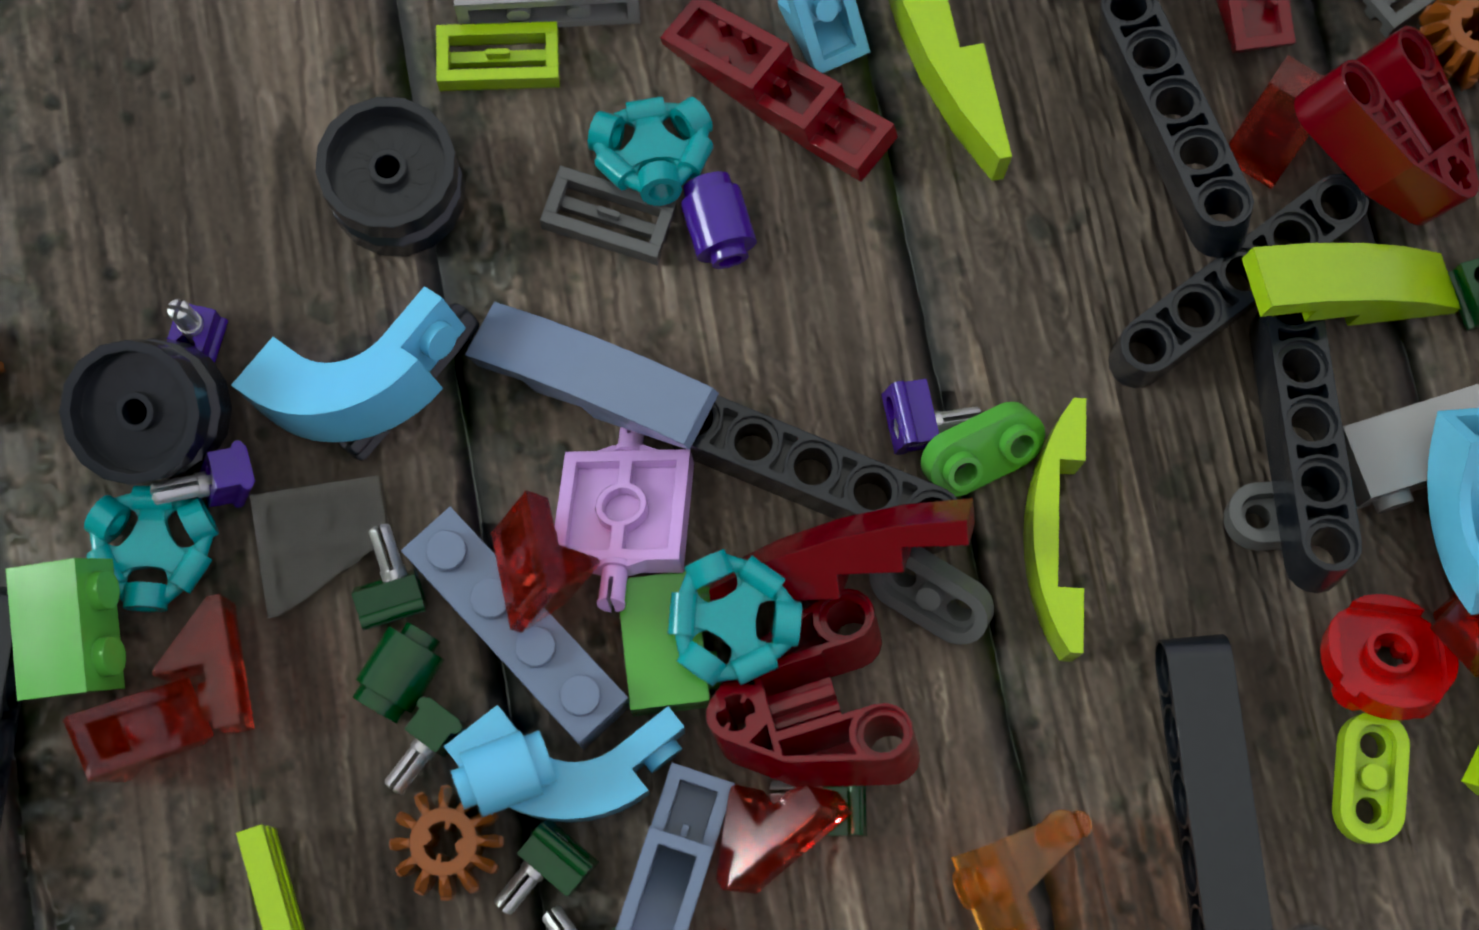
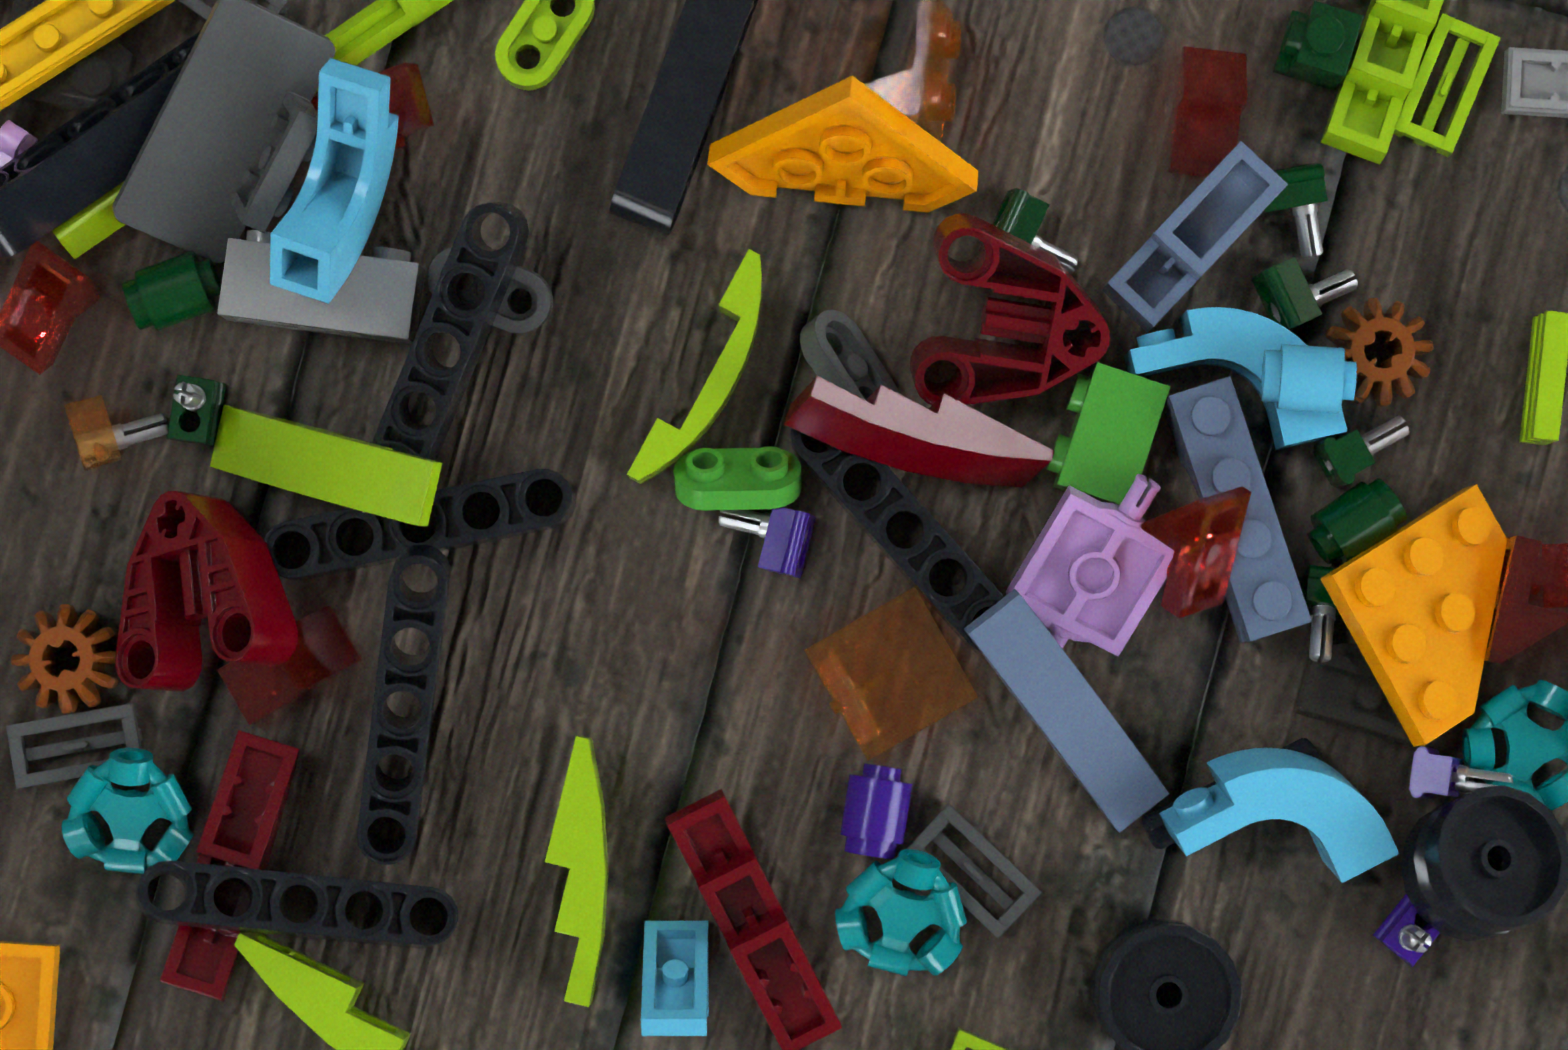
camera: 150 degrees left, 10 degrees up
(298, 619) = (1426, 610): none -> light orange plate
(732, 618) = (1048, 419): teal piece -> none
(765, 336) = (890, 673): none -> clear orange plate
(768, 838) = (1099, 226): clear red slope -> none
(1039, 790) = (844, 148): none -> light orange plate
(1369, 684) = (510, 111): red plate -> none

